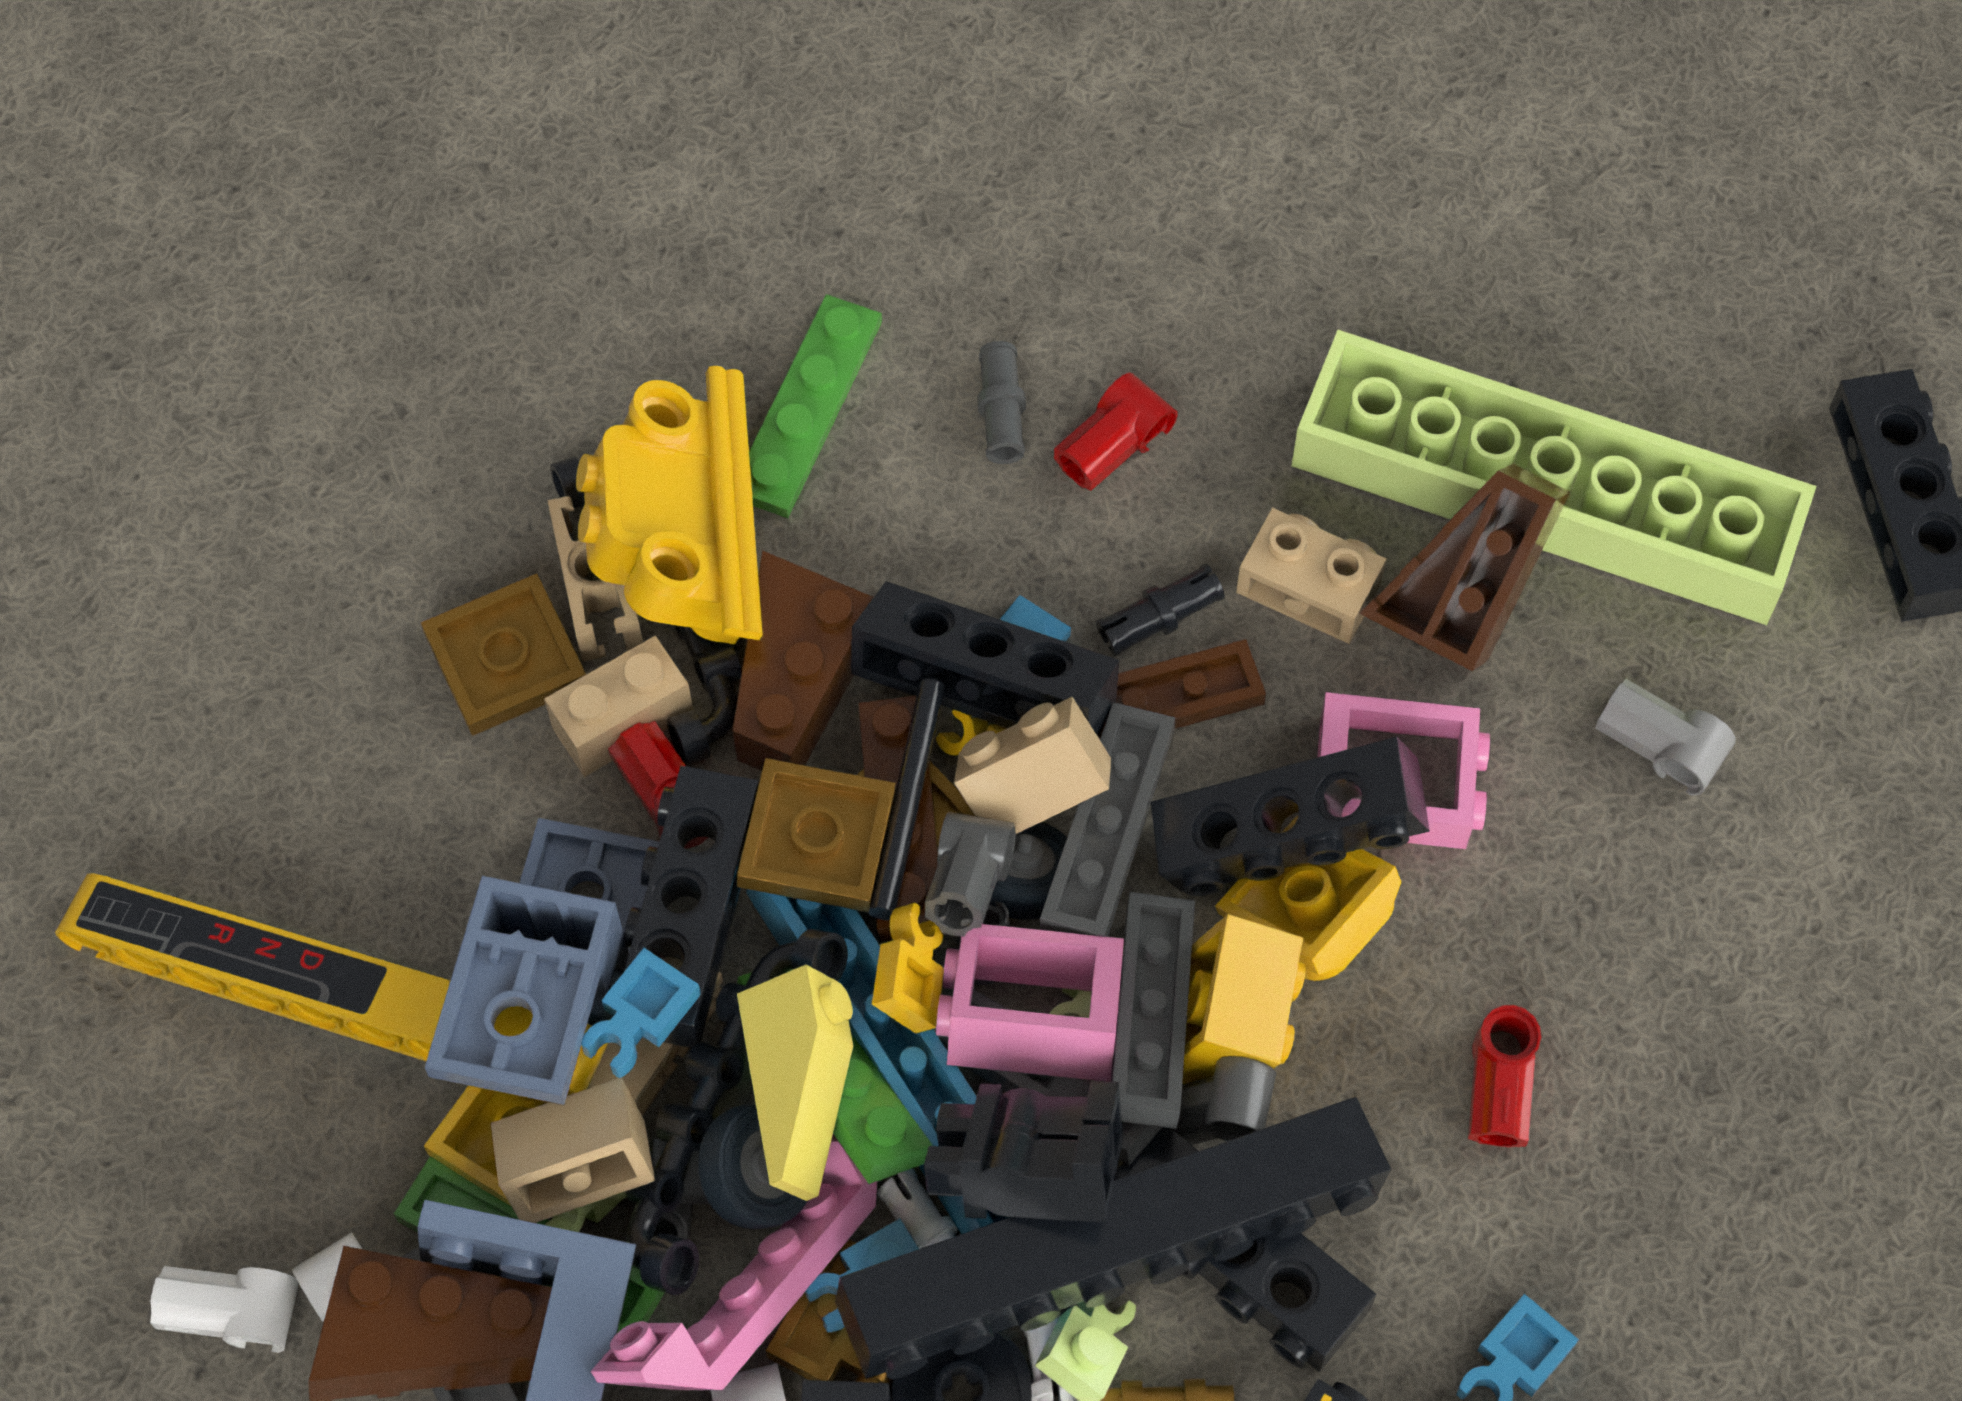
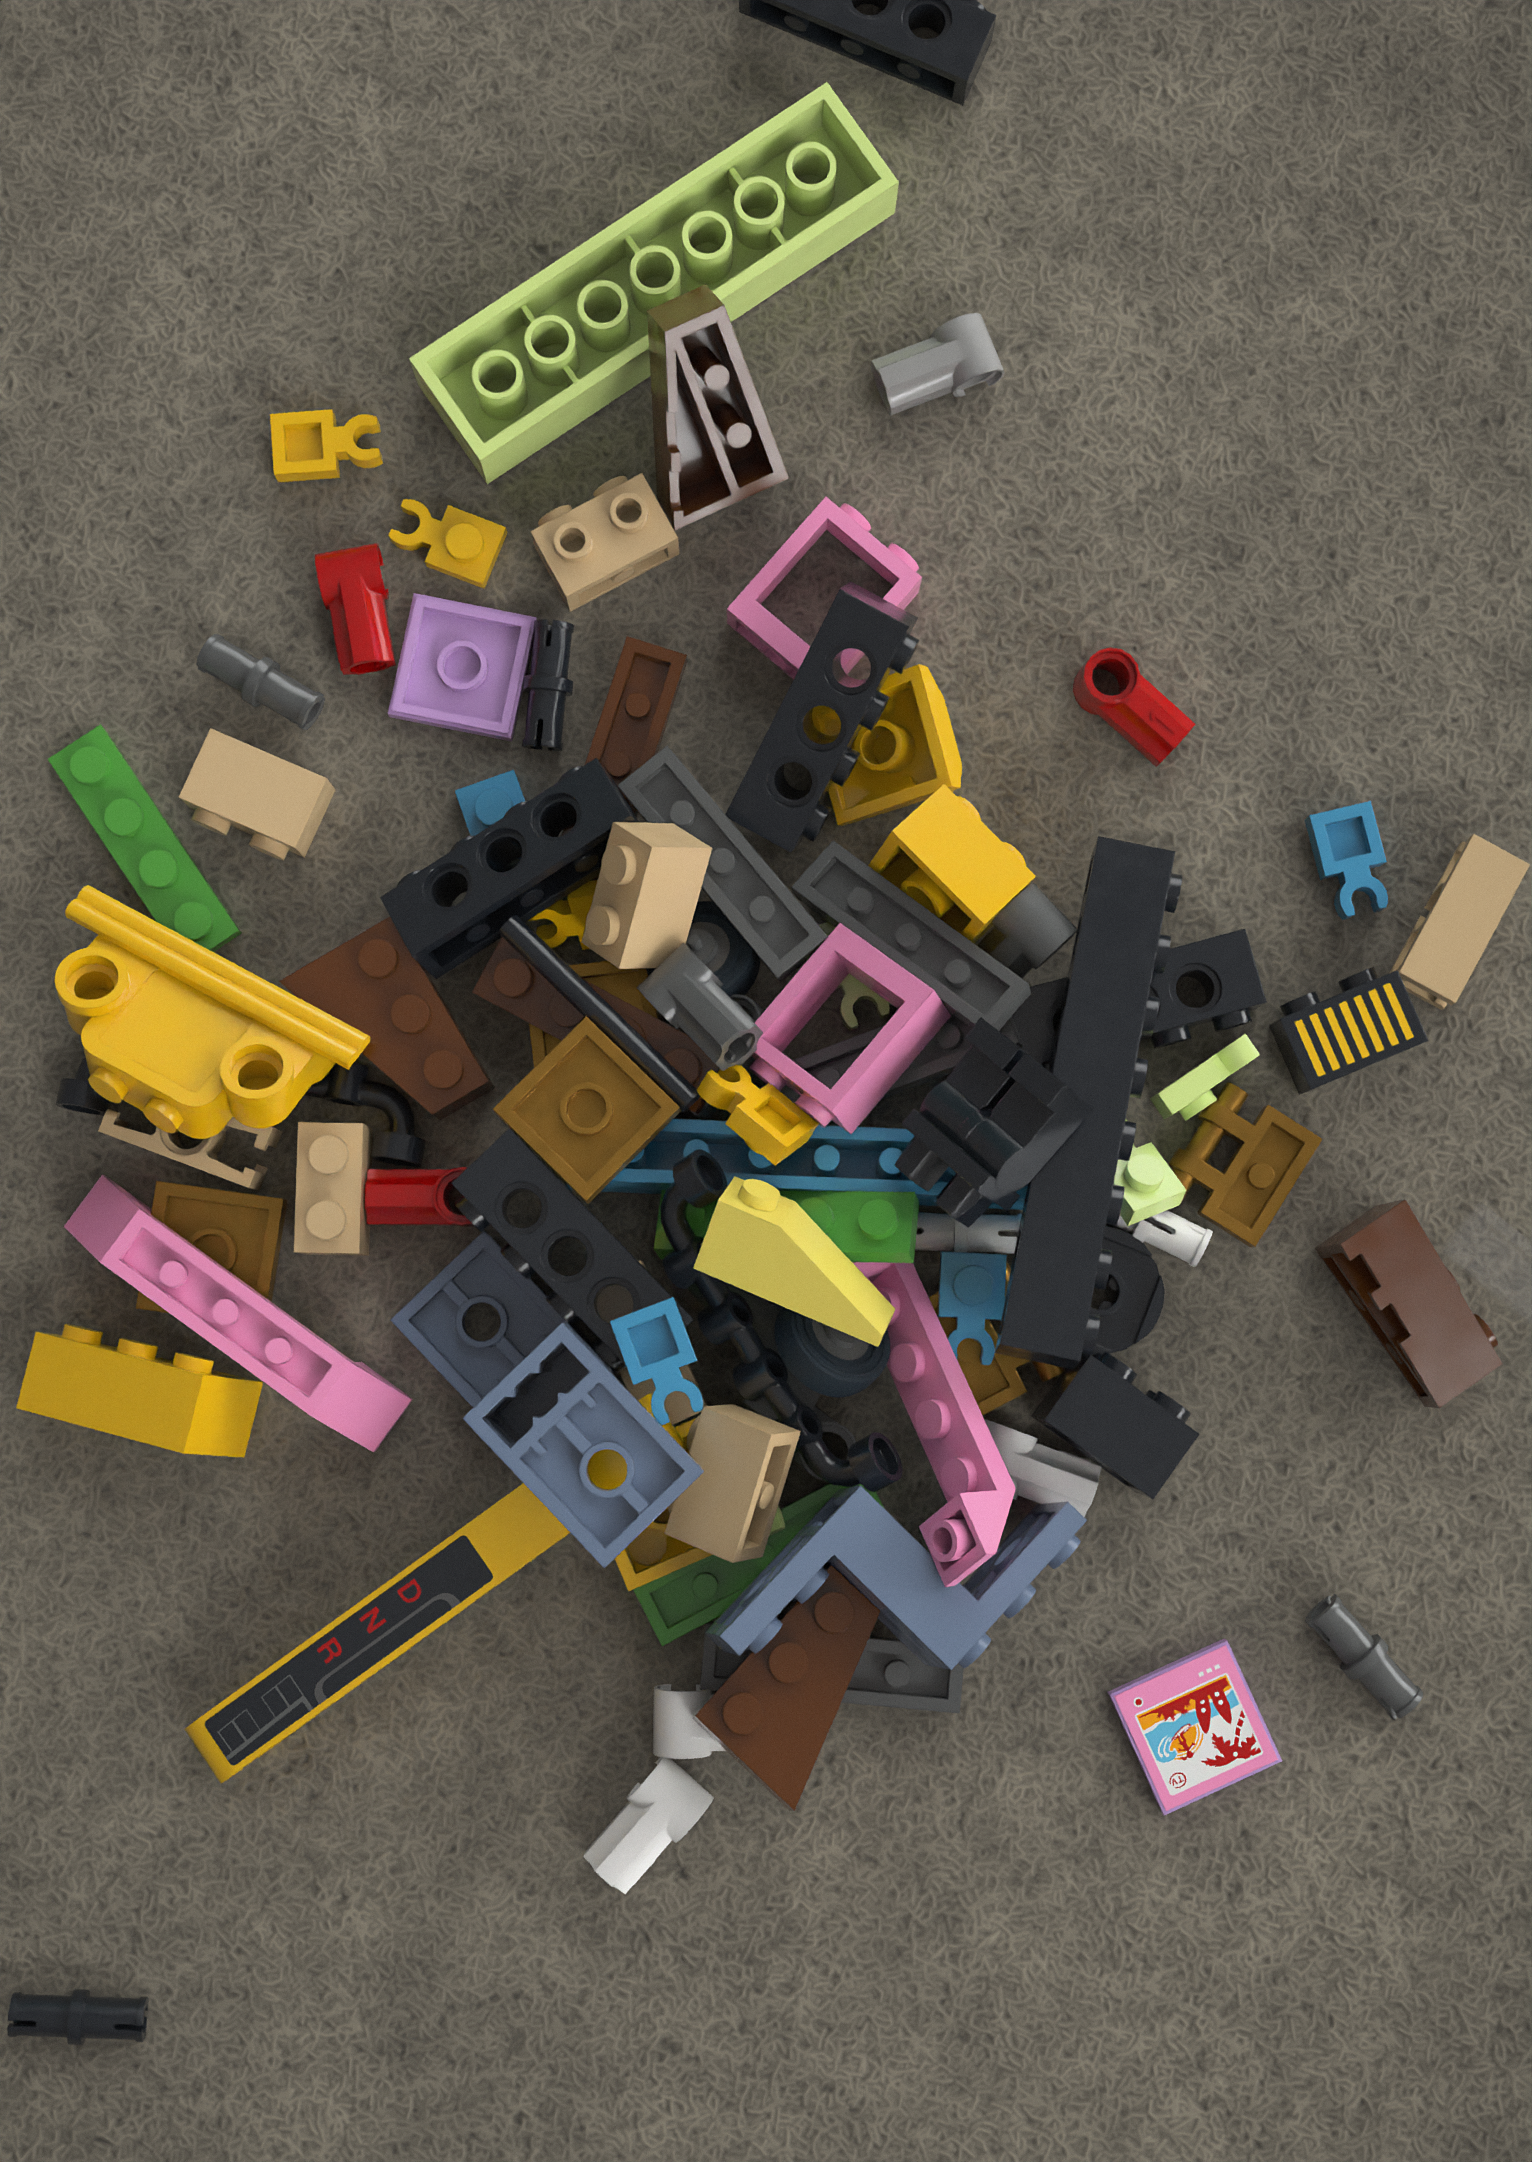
camera: 60 degrees left, 20 degrees up
(350, 670) = (139, 1395): none -> yellow wedge
(458, 708) = (235, 1316): none -> bright pink slope
(907, 453) = (257, 795): none -> tan brick
(1125, 539) = (462, 667): none -> lavender tile
(1204, 1353) = (1192, 1091): none -> yellowish green plate
(1223, 320) = (311, 444): none -> yellow plate
(1224, 476) = (458, 544): none -> yellow plate

